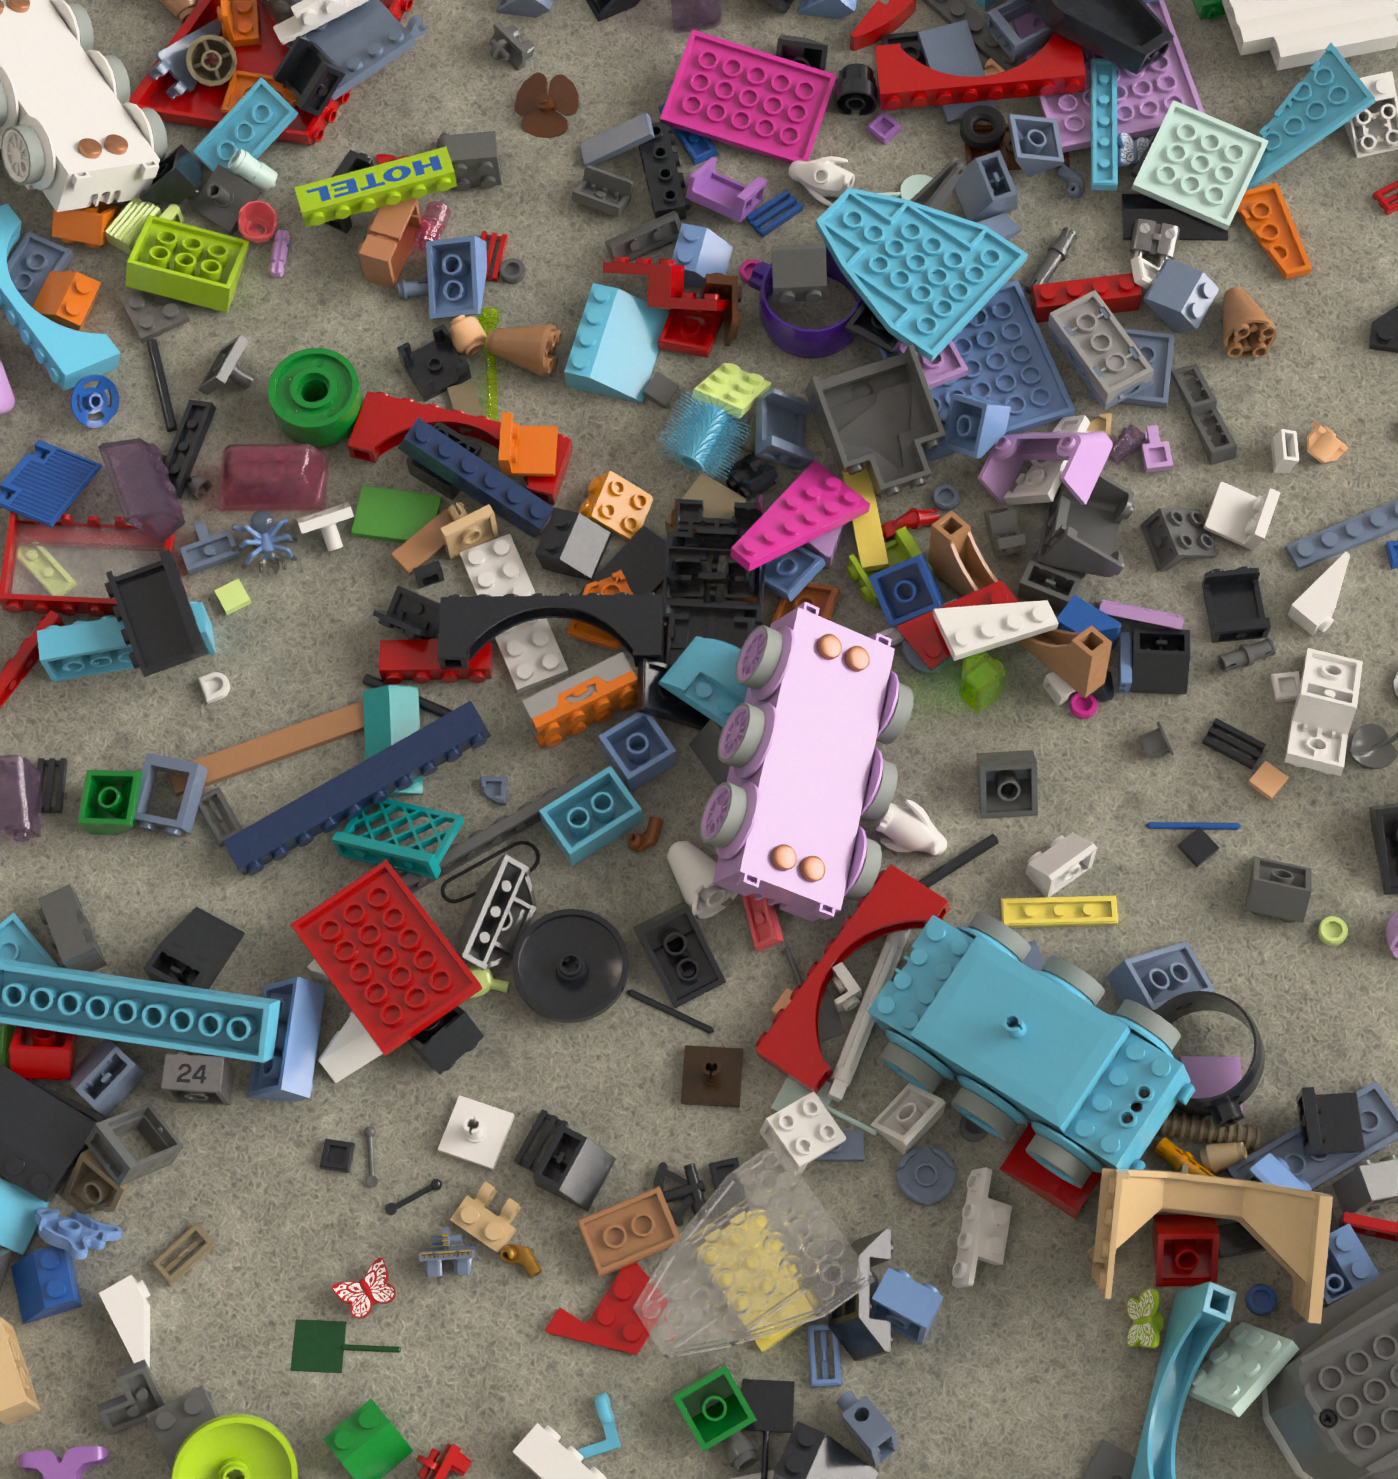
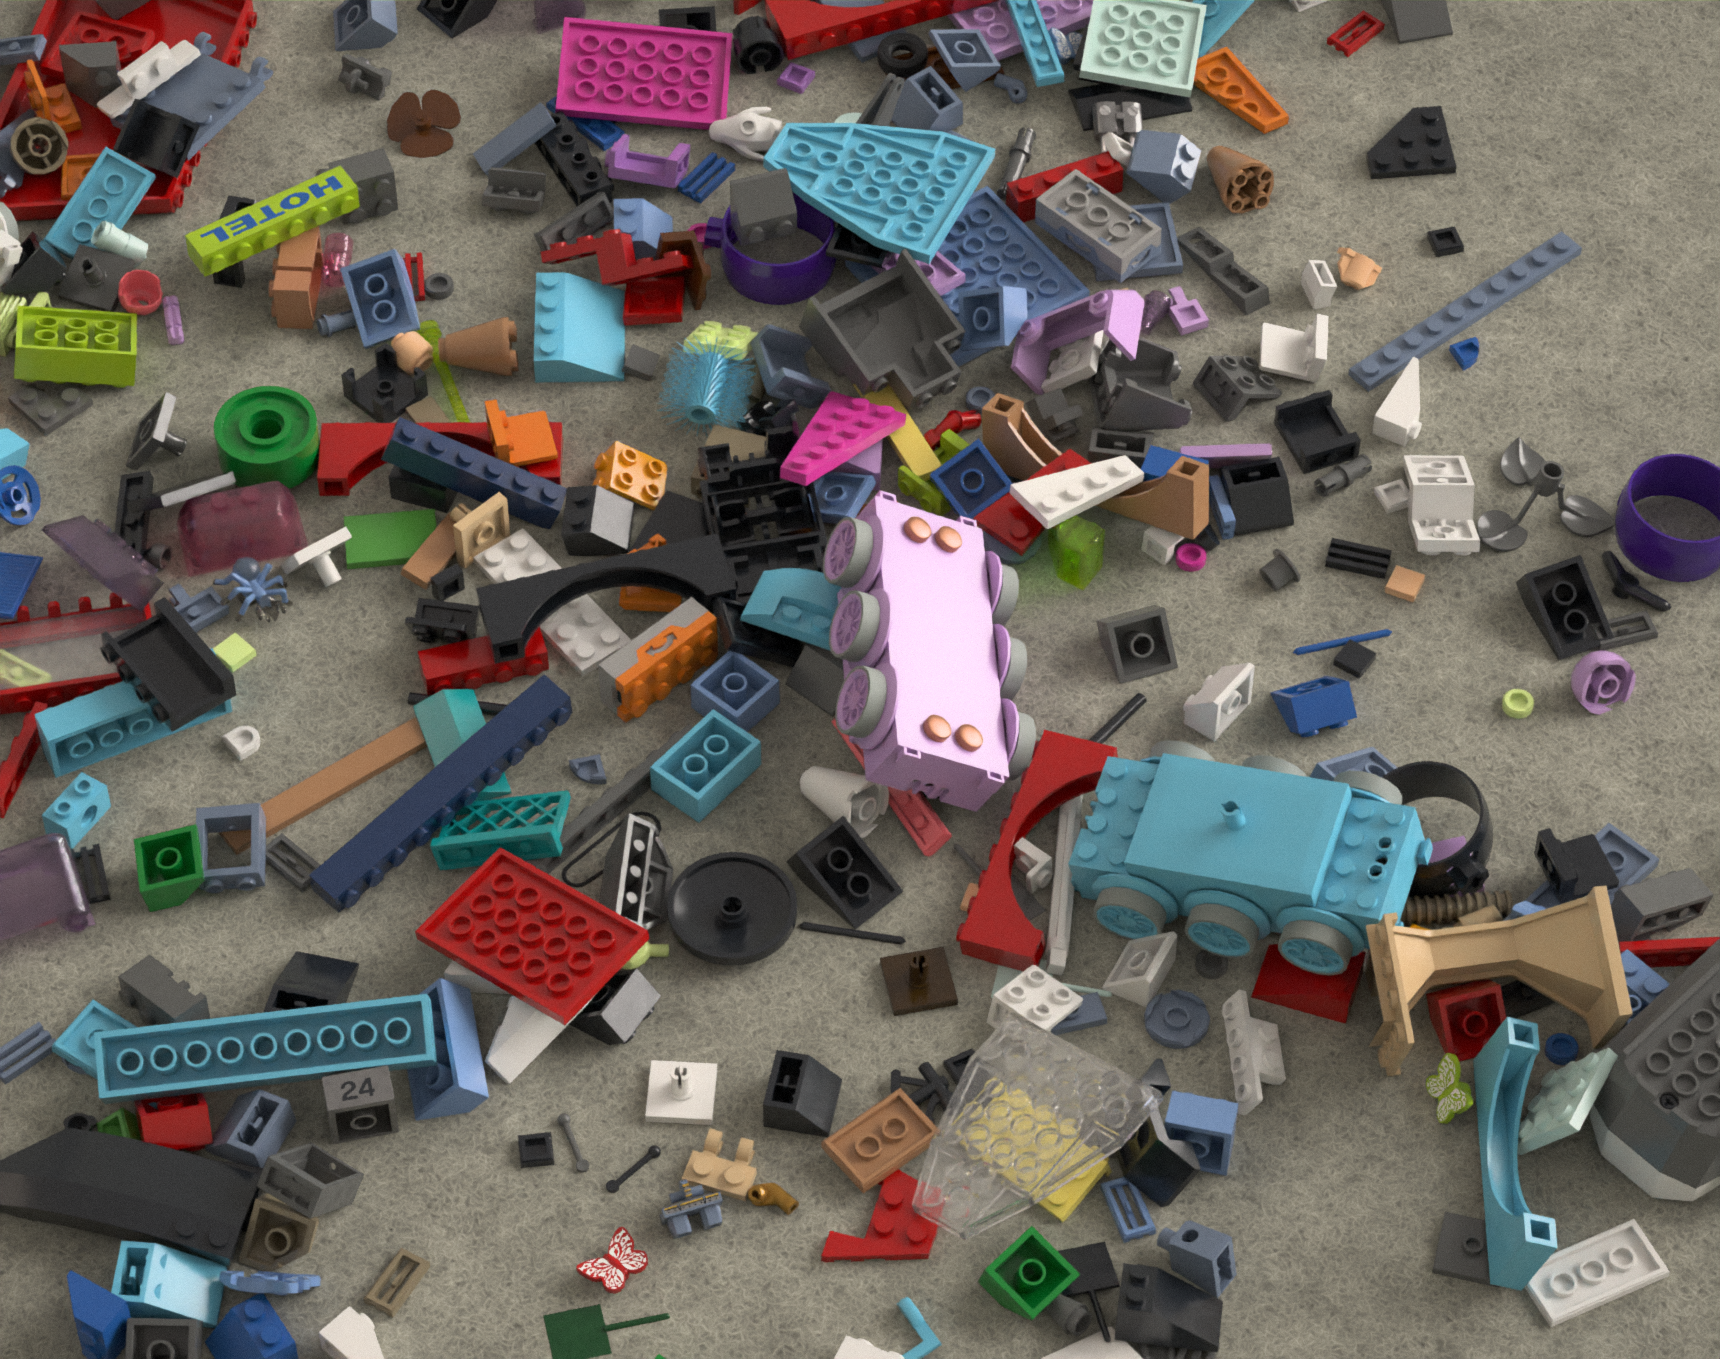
camera: 20 degrees left, 15 degrees down
(55, 723) = (77, 809): none -> medium azure brick
(161, 385) = (82, 470): black bar -> none
(228, 434) = (181, 492): none -> tile
(531, 1136) = (761, 1062): black tile -> none
(647, 839) = (773, 778): dark orange arm -> none
(910, 830) = (1052, 703): white animal -> none
(1059, 911) = (1251, 742): light yellow tile -> none
(1146, 887) = (1316, 705): none -> blue slope
(1279, 890) = (1451, 678): dark grey slope -> none

